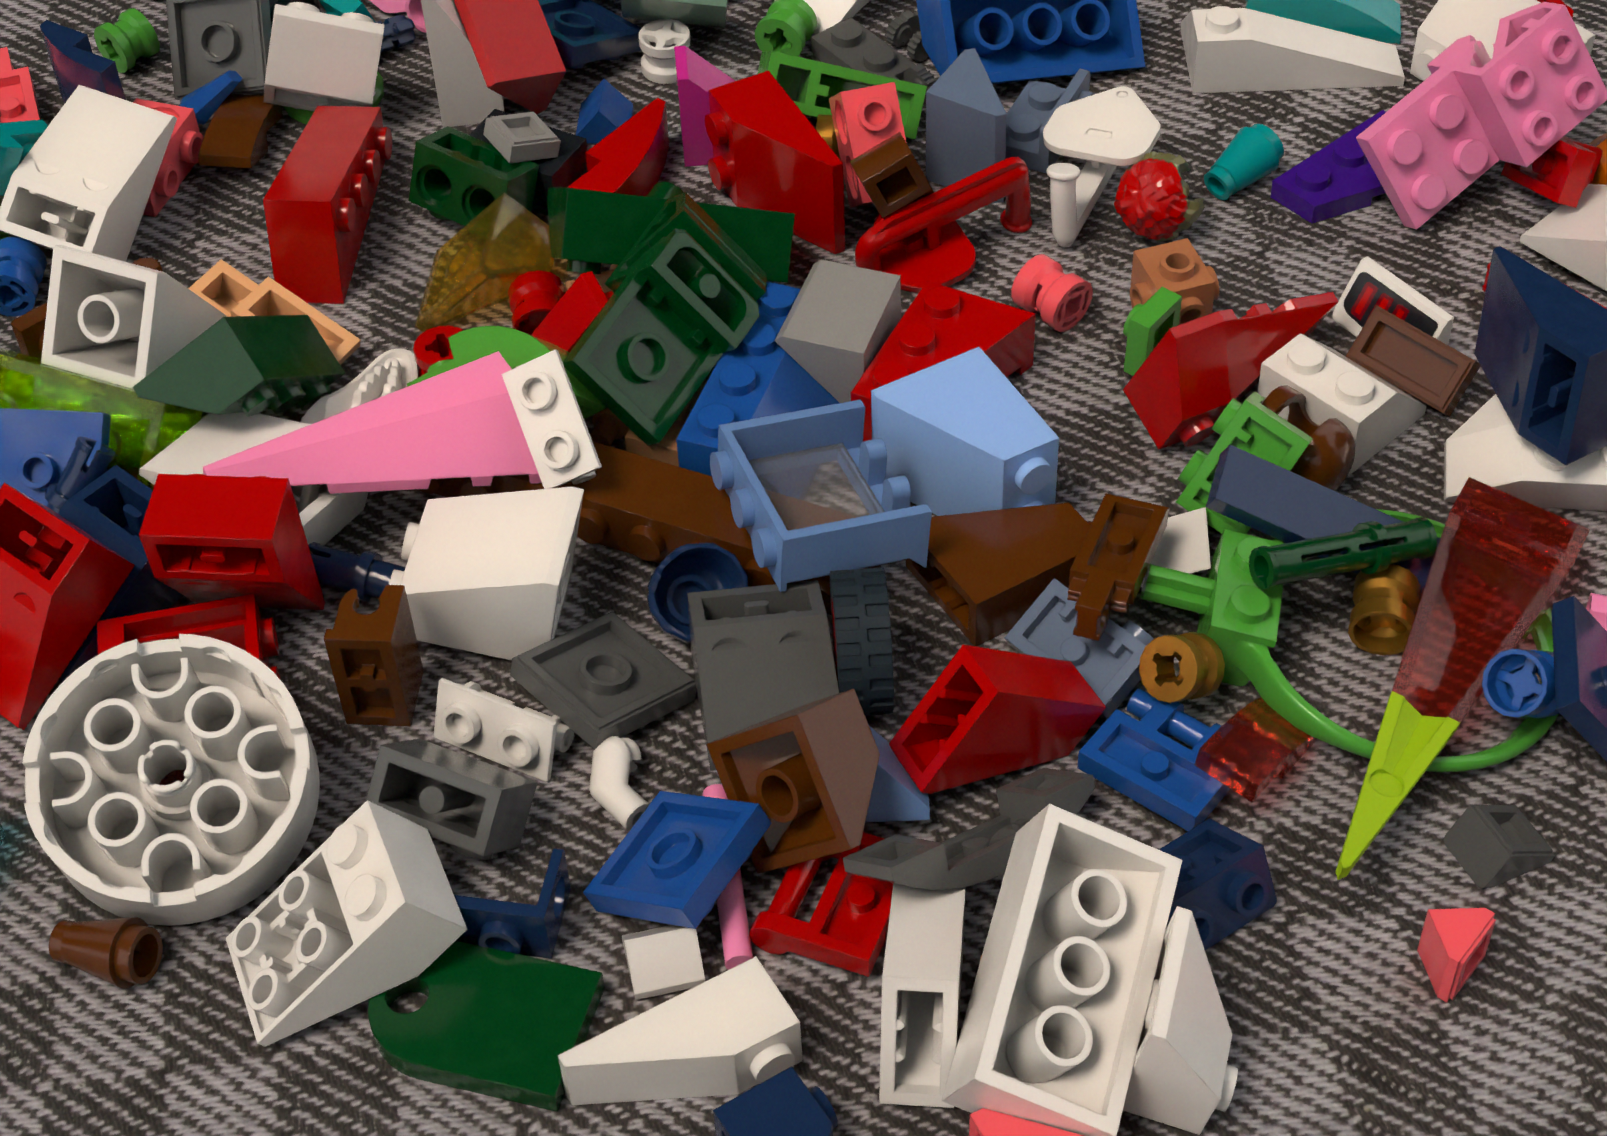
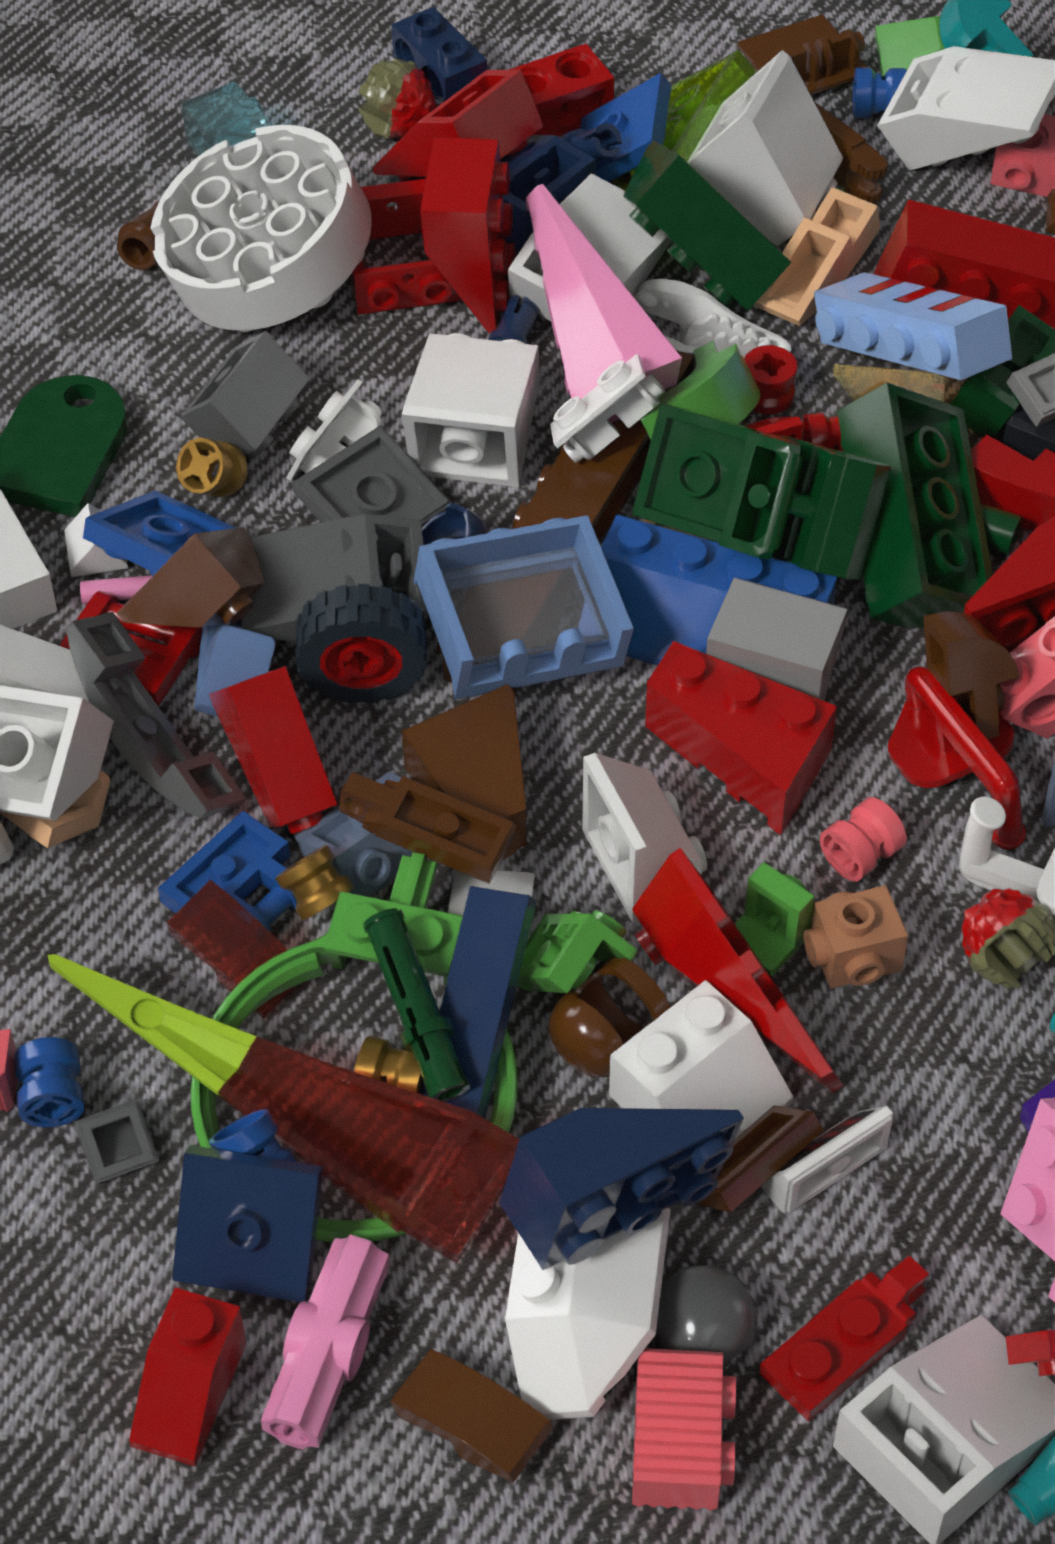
camera: 90 degrees right, 5 degrees up
(345, 925) = (135, 349): white slope -> none
(376, 660) = (382, 339): reddish brown hinge -> none
(426, 219) = (913, 325): none -> light blue brick
(520, 926) = (125, 452): dark blue bracket -> none
(576, 823) = (198, 461): none -> pearl gold wheel
(610, 776) = (266, 508): white arm -> none
(965, 438) = (607, 707): light blue slope -> none
(1102, 429) = (632, 826): none -> white slope
(1220, 880) = (90, 884): dark blue bracket -> none
(1472, 884) = (49, 1086): none -> blue wheel

